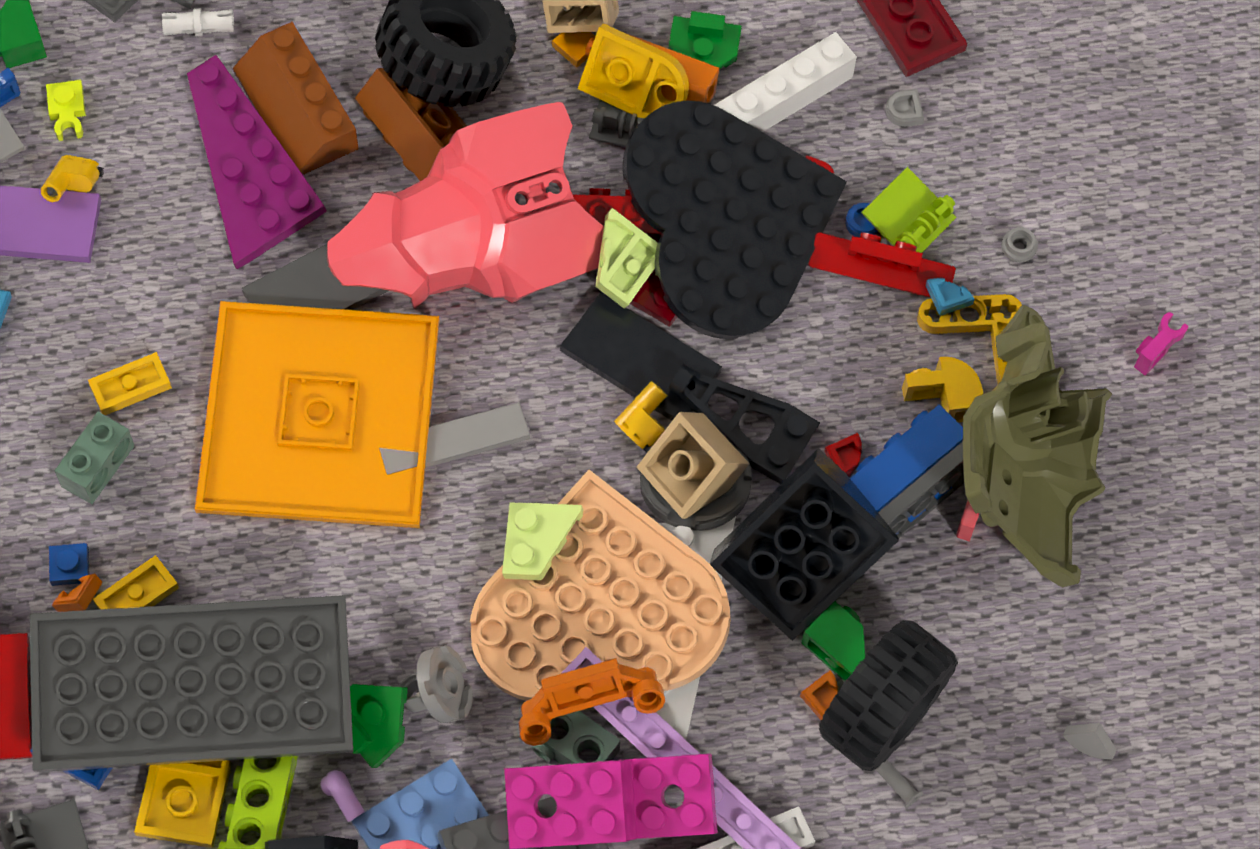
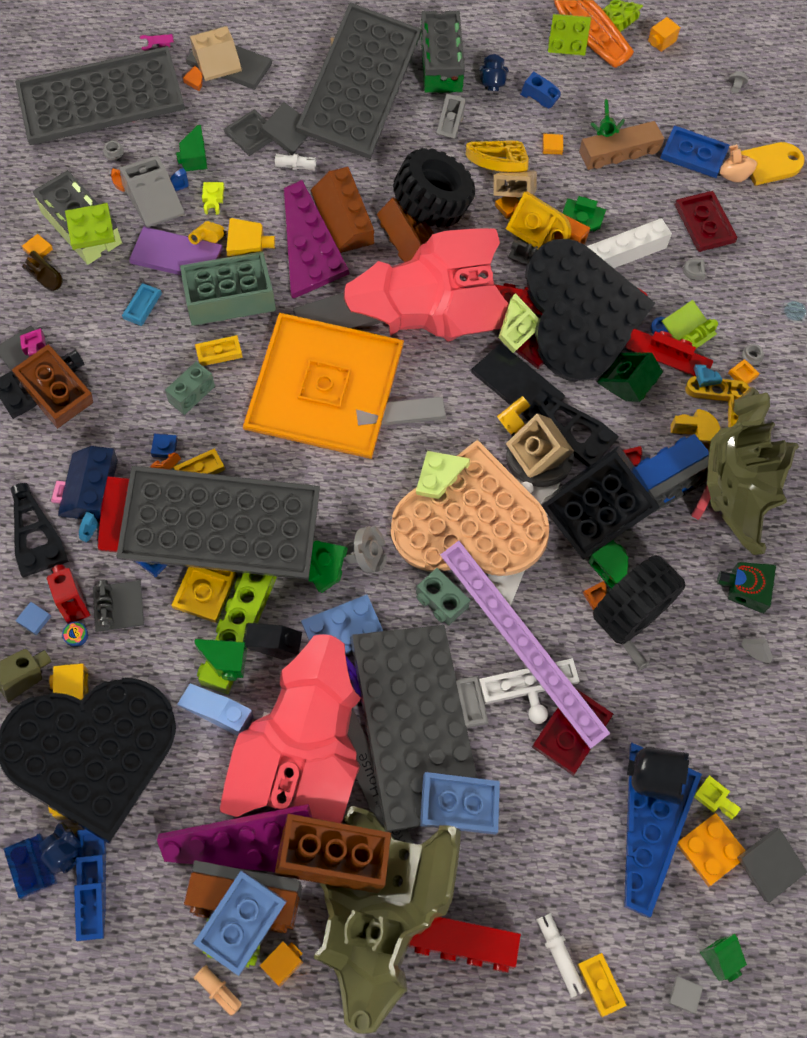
camera: 10 degrees right, 0 degrees up
(124, 271) = (227, 288): none -> sand green slope
(141, 180) = (247, 238): none -> yellow torso
(338, 786) = (296, 599): lavender arm -> none
(586, 689) = (453, 565): orange plate -> none
(610, 801) = (458, 634): dark pink bracket -> none
(825, 315) = (631, 376): none -> dark green slope
(1009, 277) = (744, 372): none -> light orange tile
(1063, 637) = (750, 585): none -> dark green torso
(1079, 155) = (795, 310): none -> clear light blue piece

